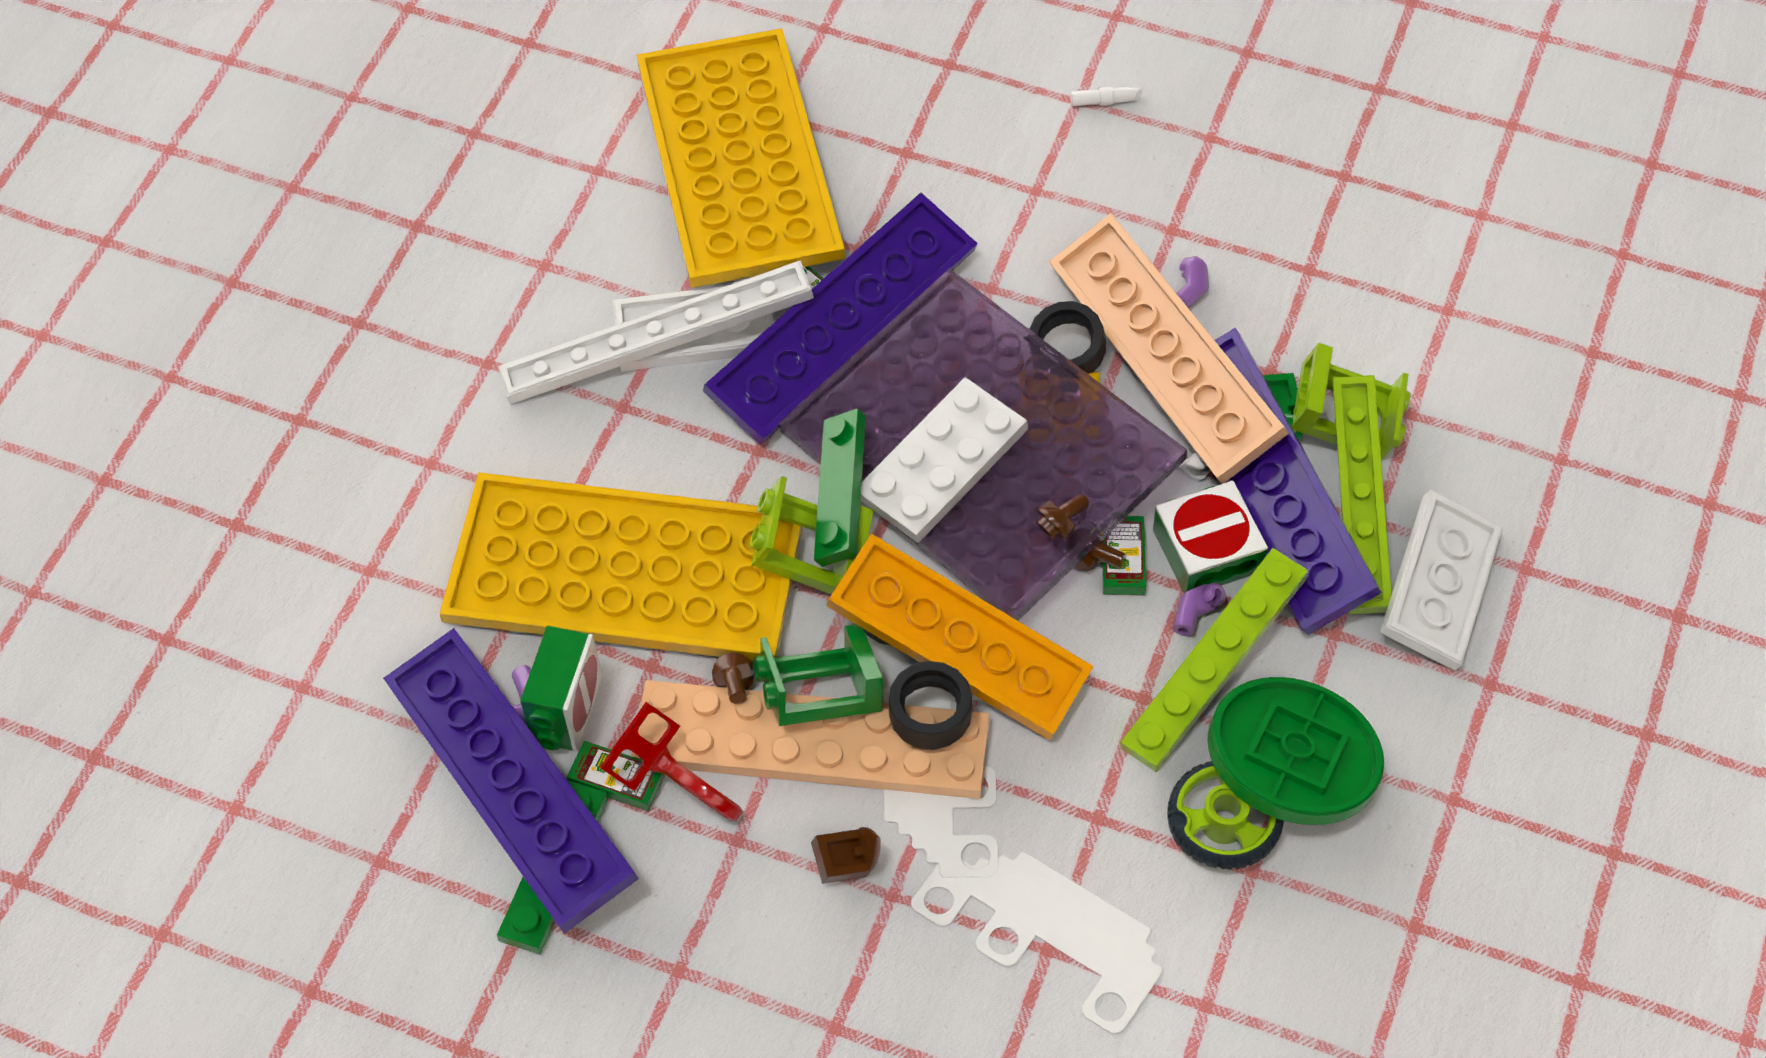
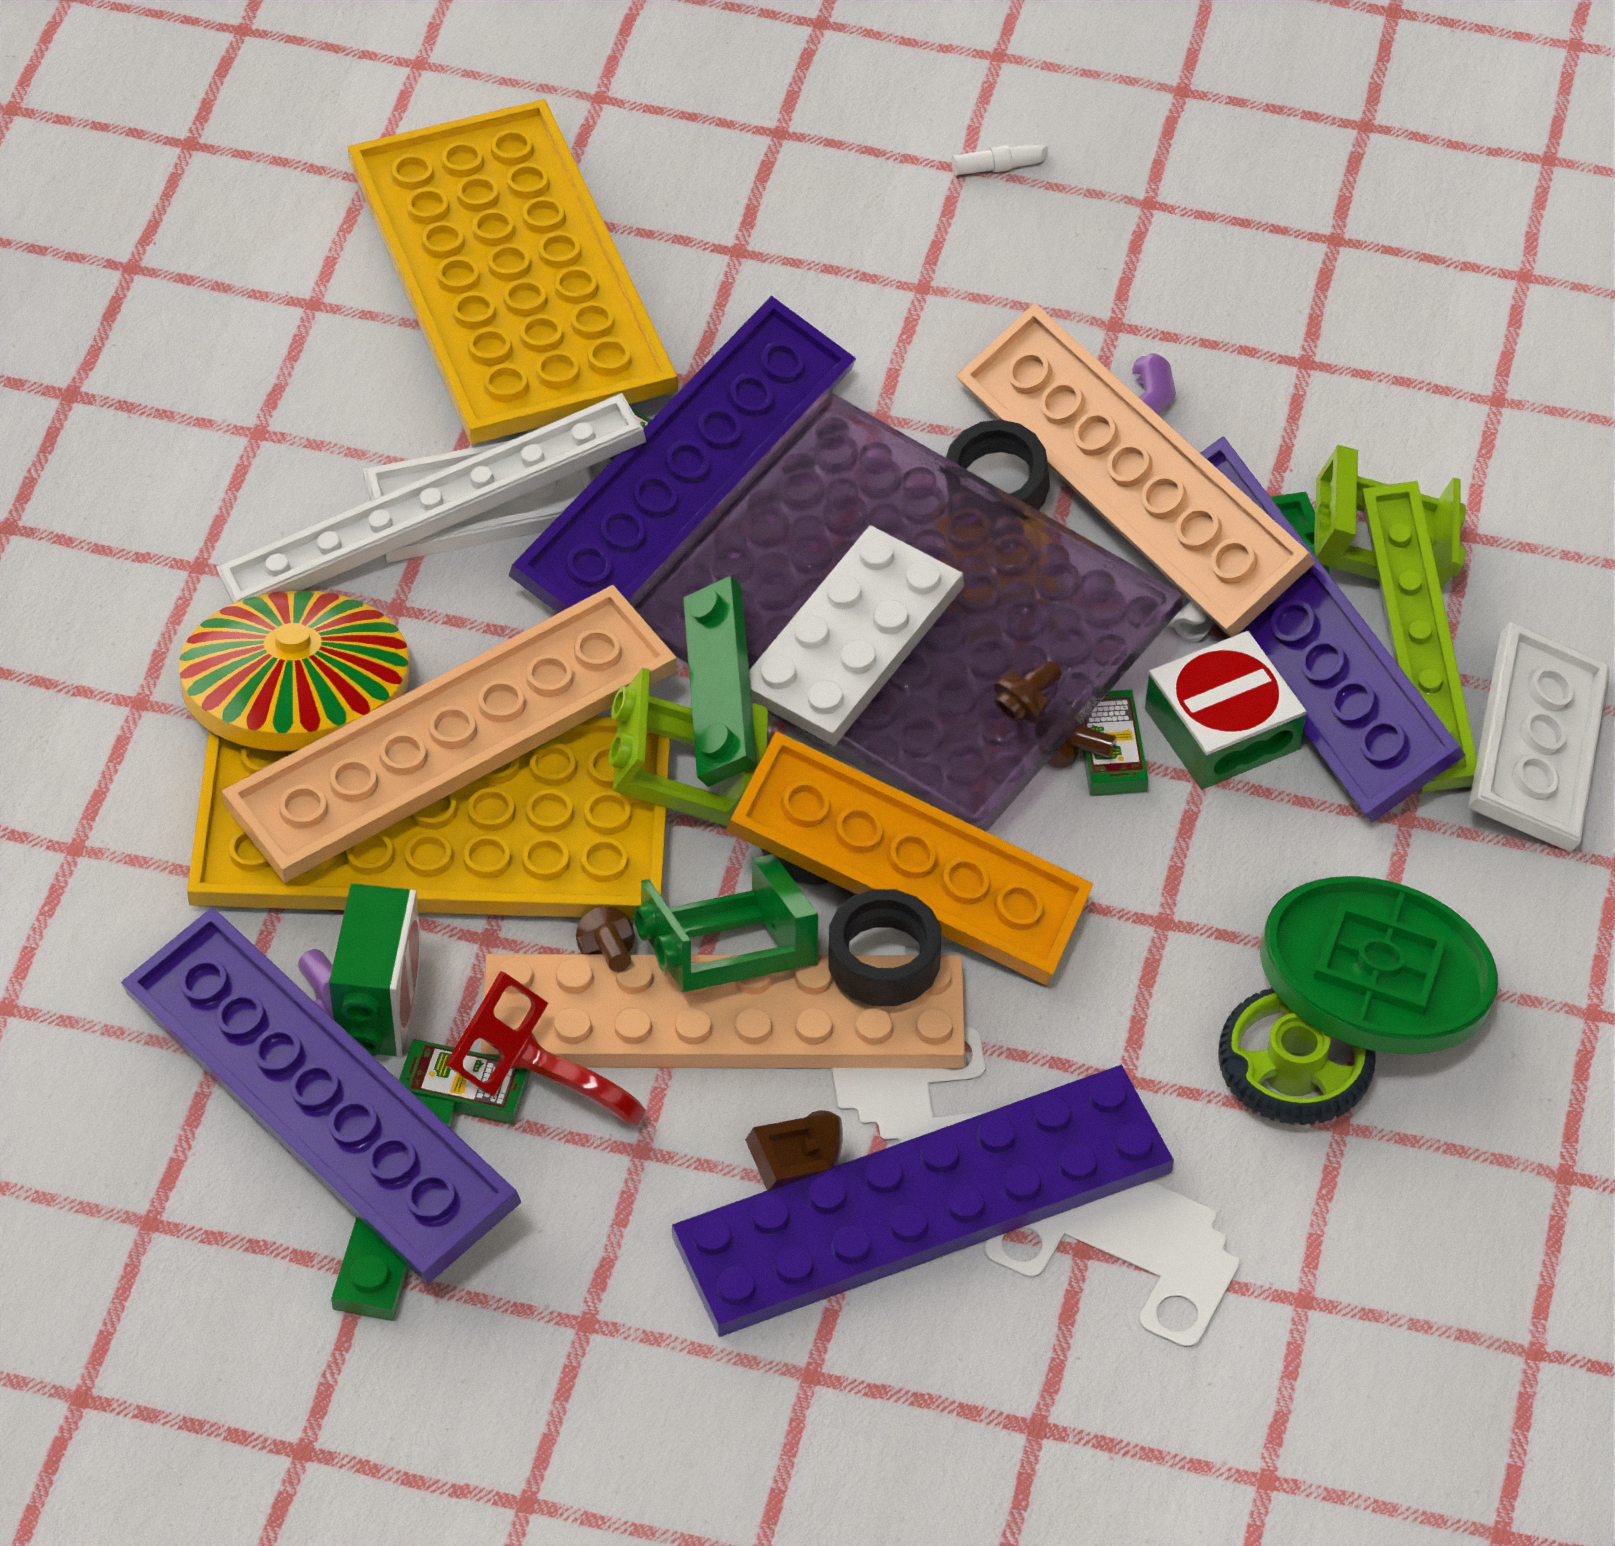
camera: 10 degrees left, 5 degrees down
(540, 451) = (291, 668): none -> dish
(639, 510) = (446, 733): none -> light nougat plate
(934, 899) = (920, 1200): none -> dark purple plate
(1195, 604) = (1218, 795): medium lavender arm -> none
(1214, 660) = (1253, 862): lime plate -> none

